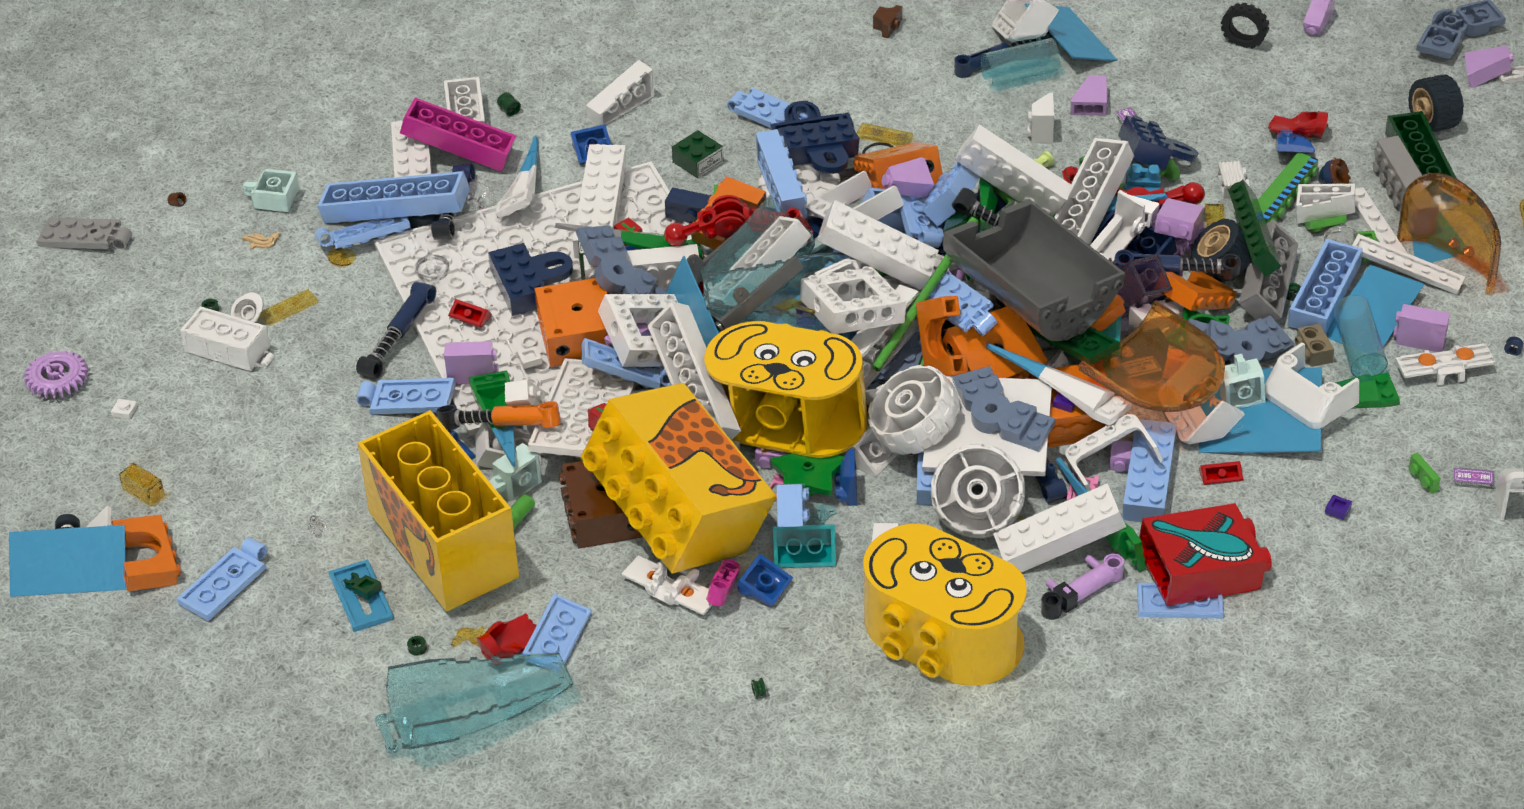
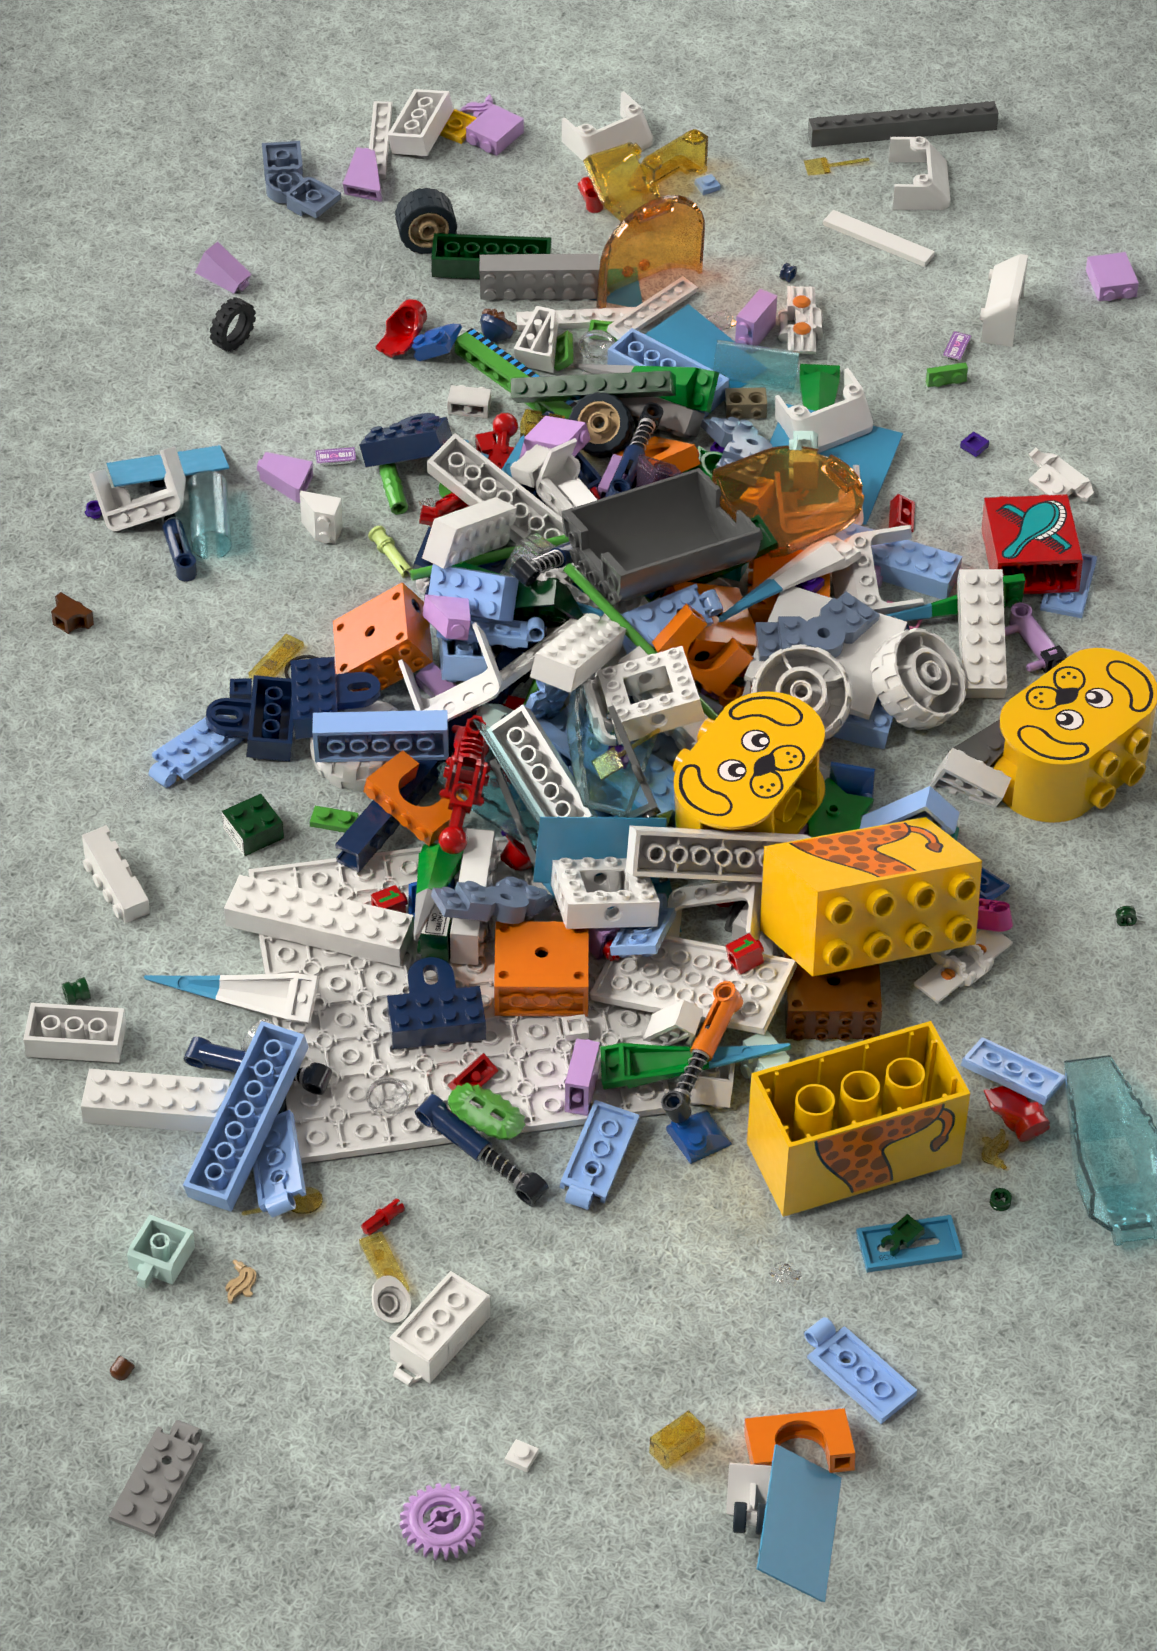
camera: 80 degrees left, 5 degrees up
(210, 302) = (363, 1344): dark green bush -> none
(330, 296) = (382, 1217): none -> red axle
(414, 314) = (481, 1119): none -> bright green piece
(457, 134) = (146, 1036): dark pink brick -> none
(584, 137) = (194, 920): blue slope -> none
(1300, 282) = (693, 385): none -> green plate
(1319, 572) = (1058, 477): none -> white plate

